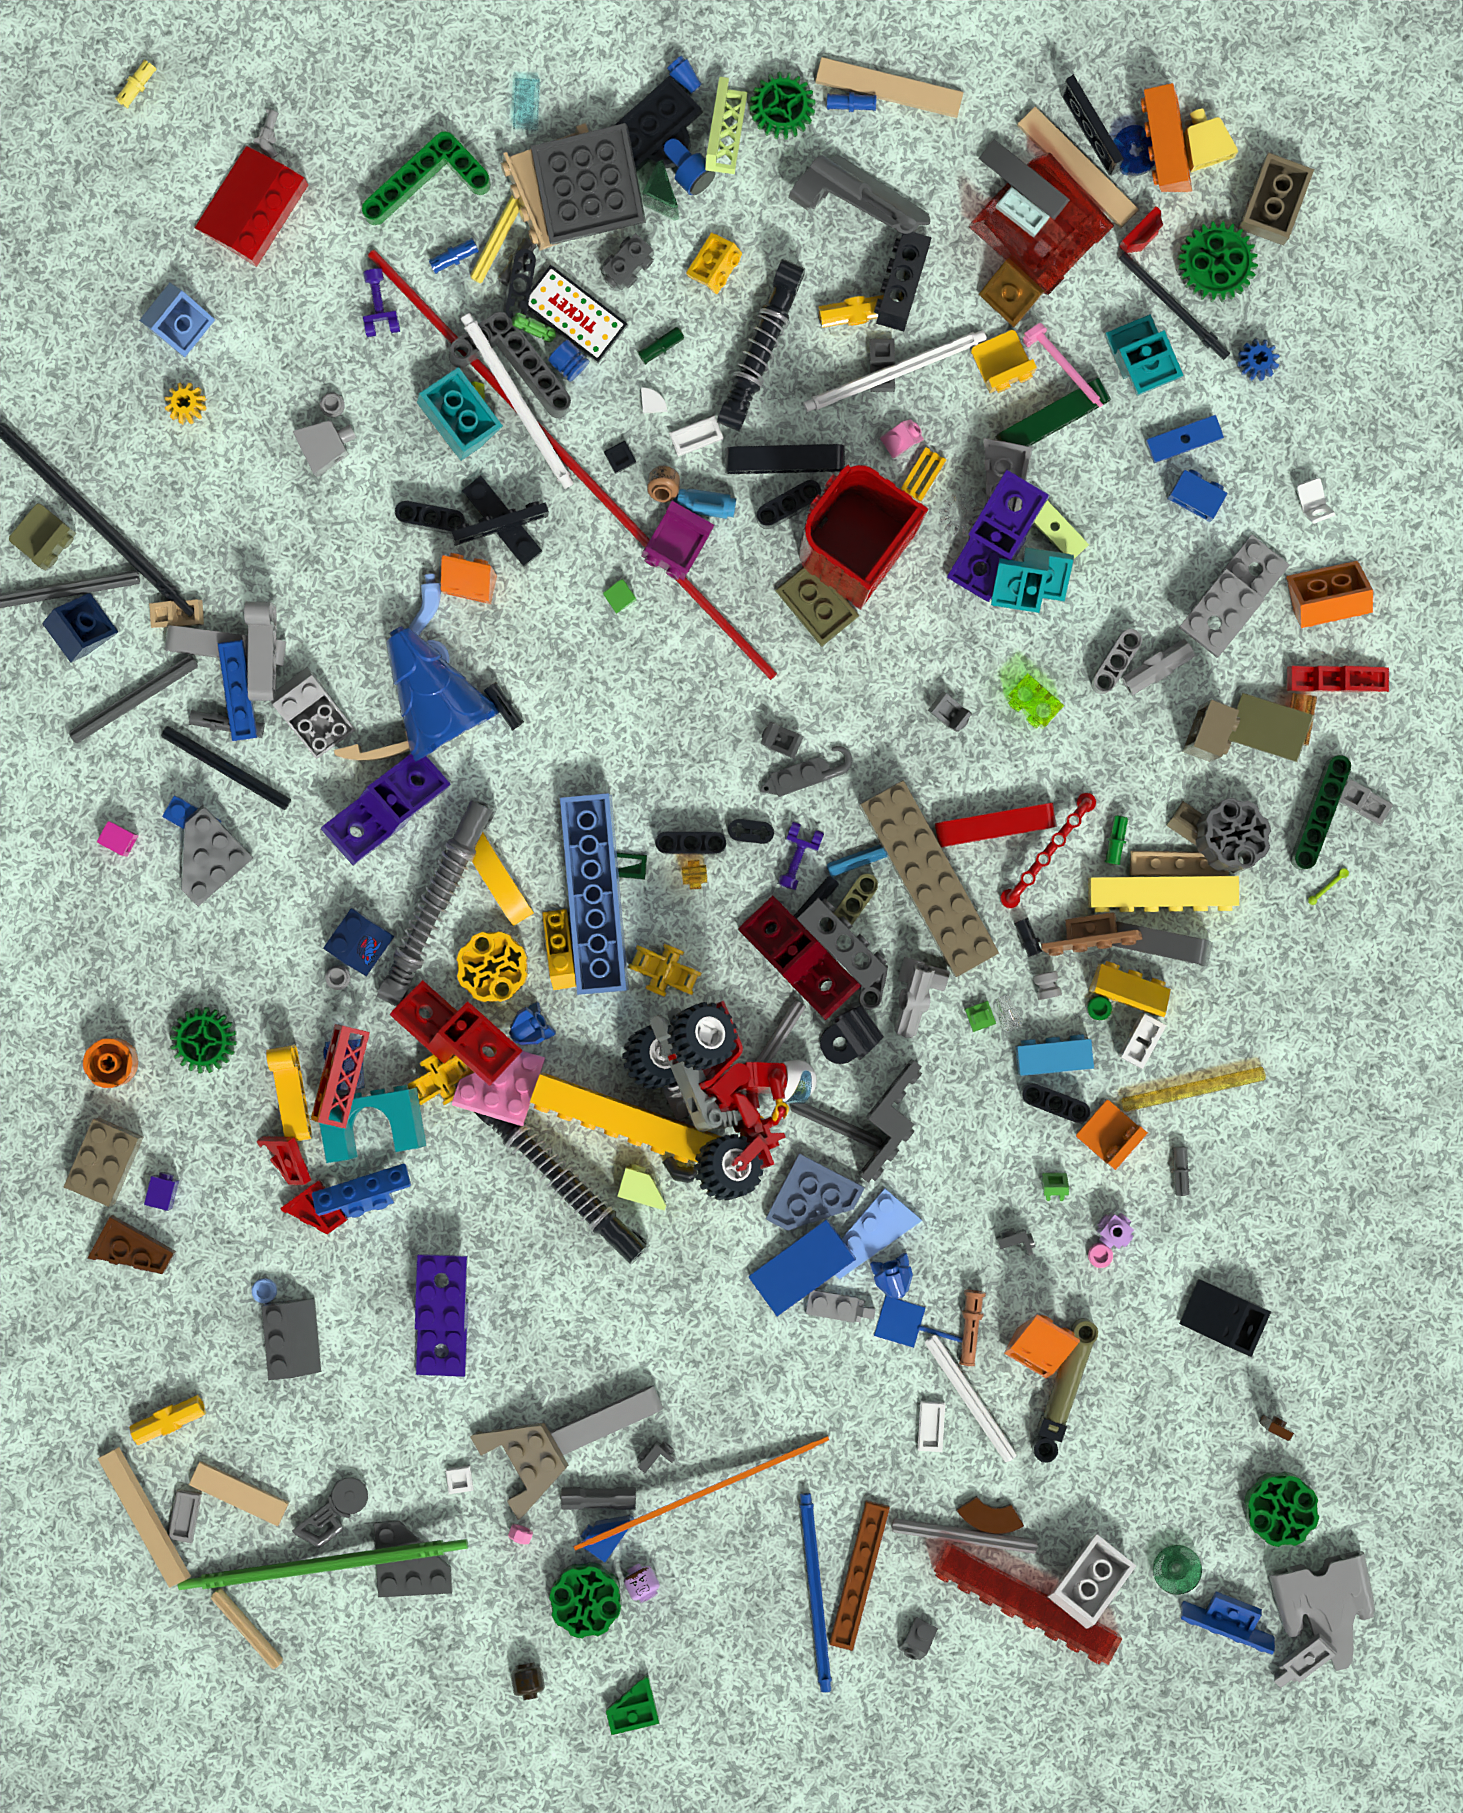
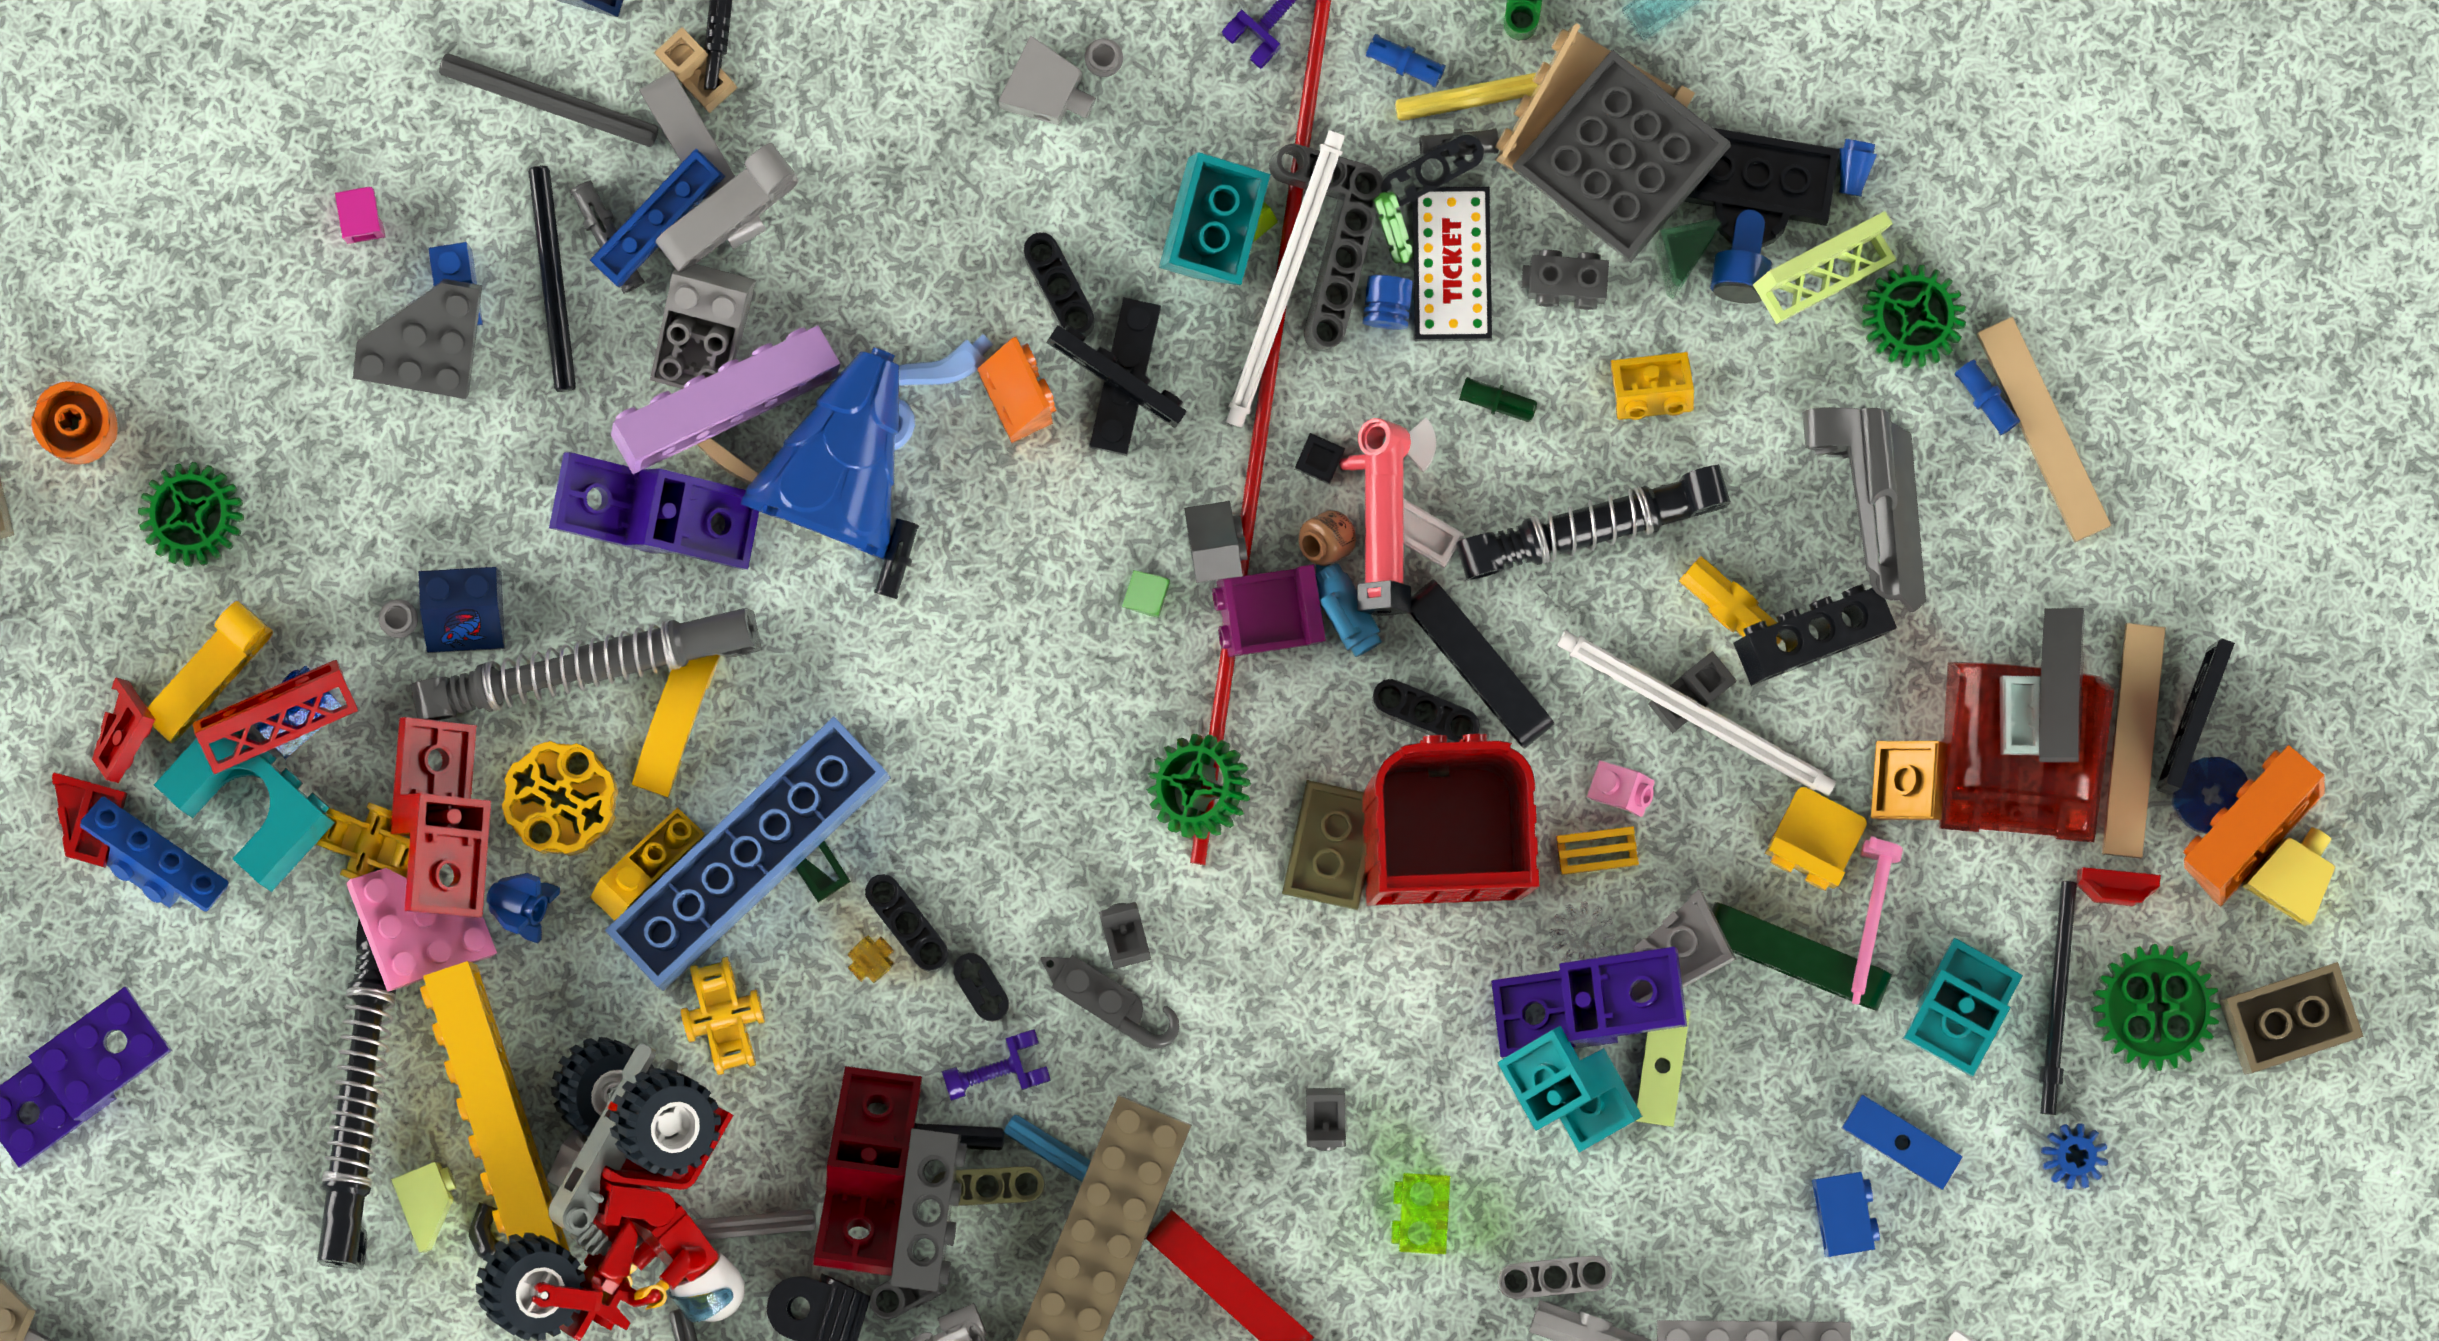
camera: 50 degrees right, 5 degrees down
(356, 728) = (725, 398): none -> lavender brick
(621, 540) = (1215, 541): none -> dark grey brick
(710, 474) = (1383, 465): none -> coral piece
(731, 638) = (1196, 801): none -> green gear

